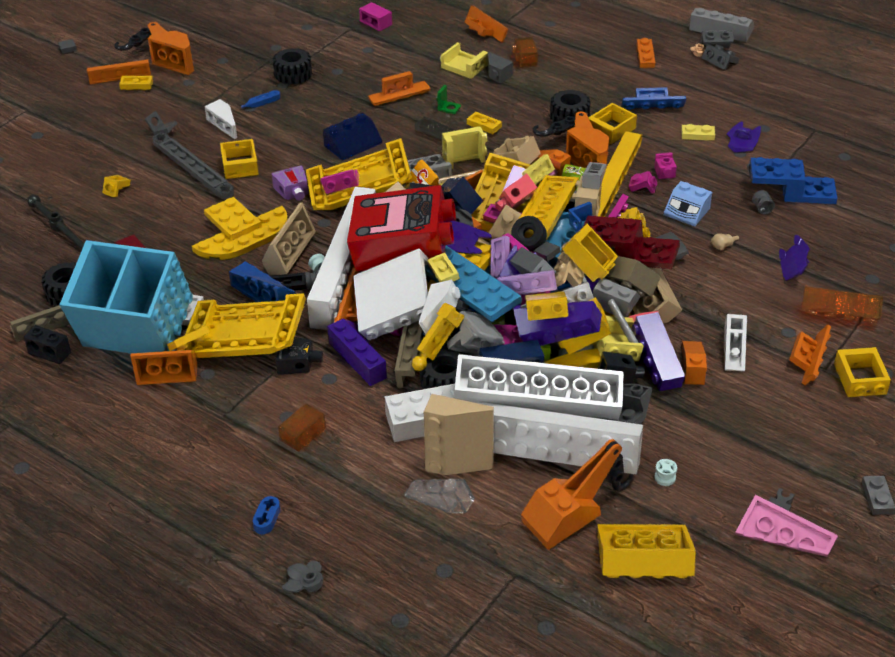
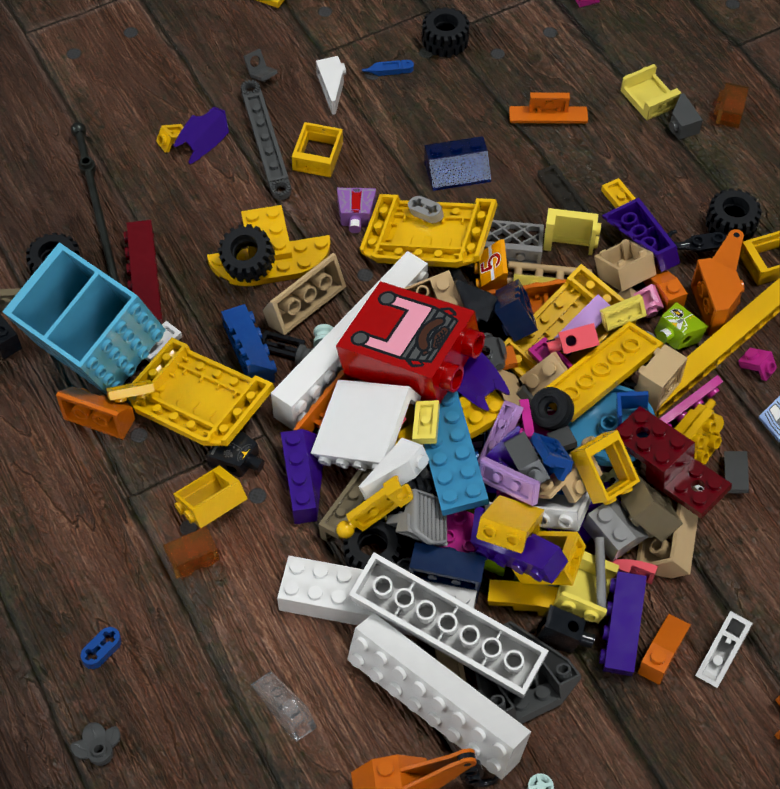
camera: 25 degrees right, 15 degrees up
(141, 173) = (203, 132): none -> dark purple shield
(228, 216) = (242, 238): none -> black tyre
(296, 384) = (209, 496): none -> yellow window
(340, 181) = (402, 231): dark pink bracket -> none
(347, 163) = (428, 207): none -> light grey beam
(443, 103) = (591, 148): green bracket -> none
(458, 436) = (323, 650): tan slope -> none
(485, 24) = (705, 43): orange bracket -> none
(511, 127) = (642, 227): none -> dark purple wedge
(553, 255) = (553, 455): none -> blue bracket
(593, 175) = (677, 352): light grey slope -> none

